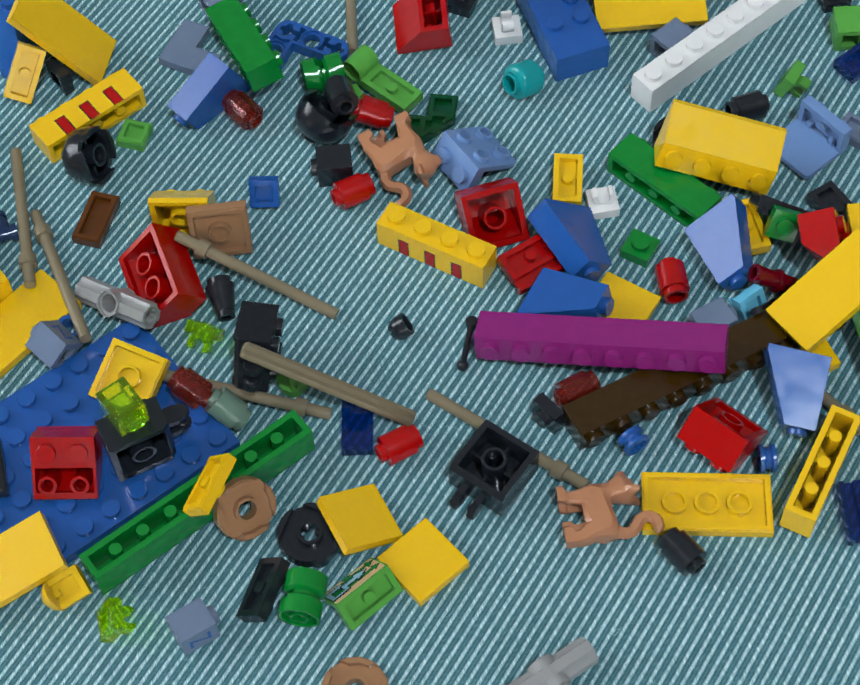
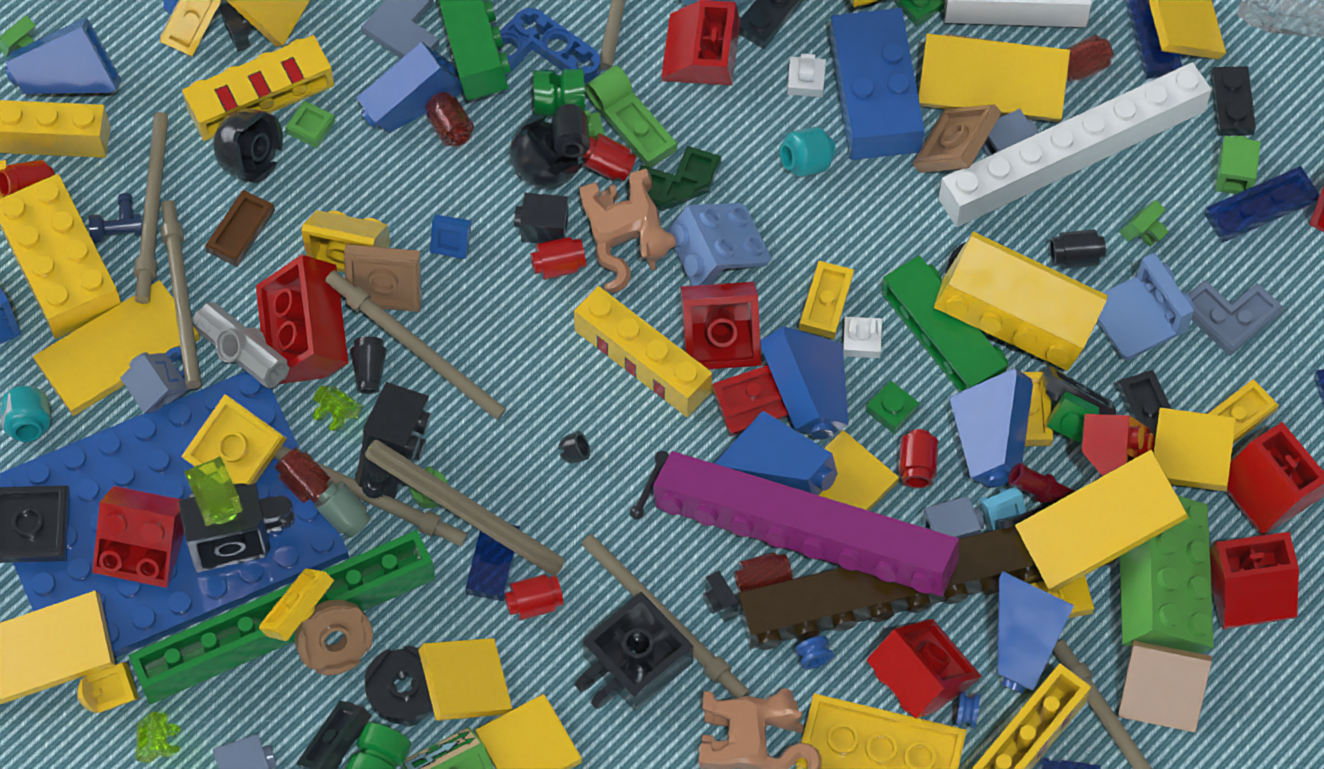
camera: 10 degrees right, 5 degrees up
(634, 47) = (957, 138): none -> medium nougat tile

